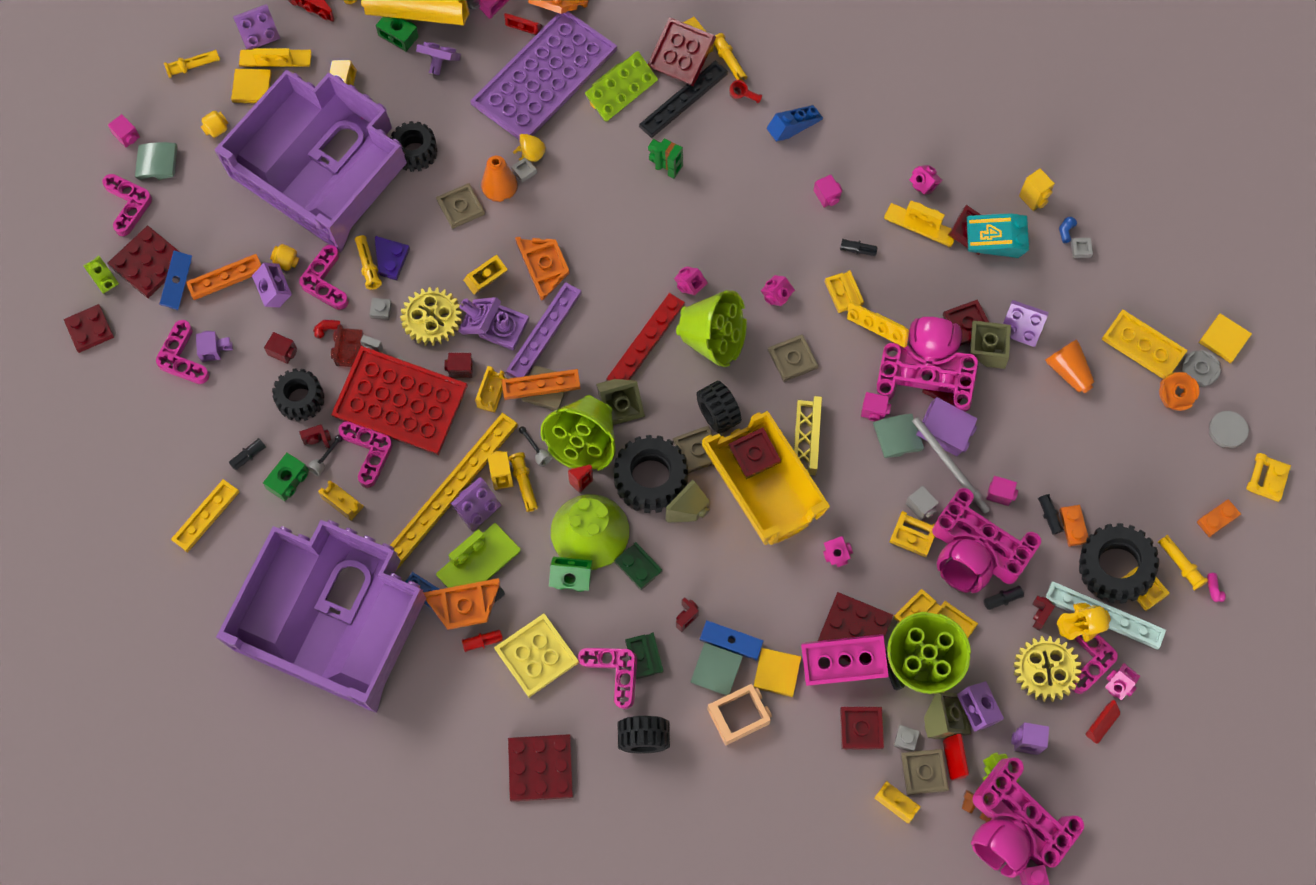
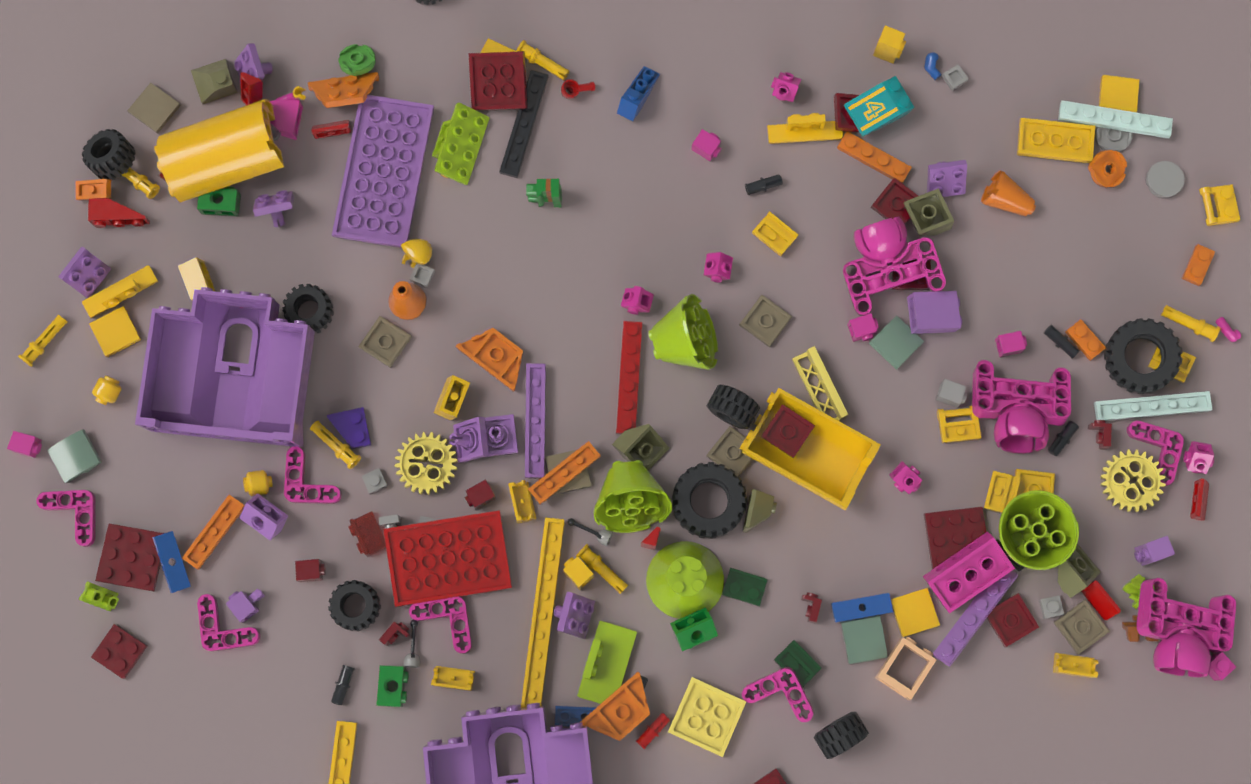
camera: 30 degrees left, 10 degrees up
(323, 326) = (336, 525): red arm -> none
(829, 703) = (972, 619): none -> medium lavender plate
(878, 324) = (826, 250): yellow bracket -> none
(950, 464) = (957, 346): light grey bar -> none
(970, 276) = (873, 157): none -> orange plate
(980, 706) = (1098, 546): medium lavender brick -> none
(1085, 621) = (1144, 422): yellow head -> none
(1210, 354) = (1115, 119): none -> light aqua plate

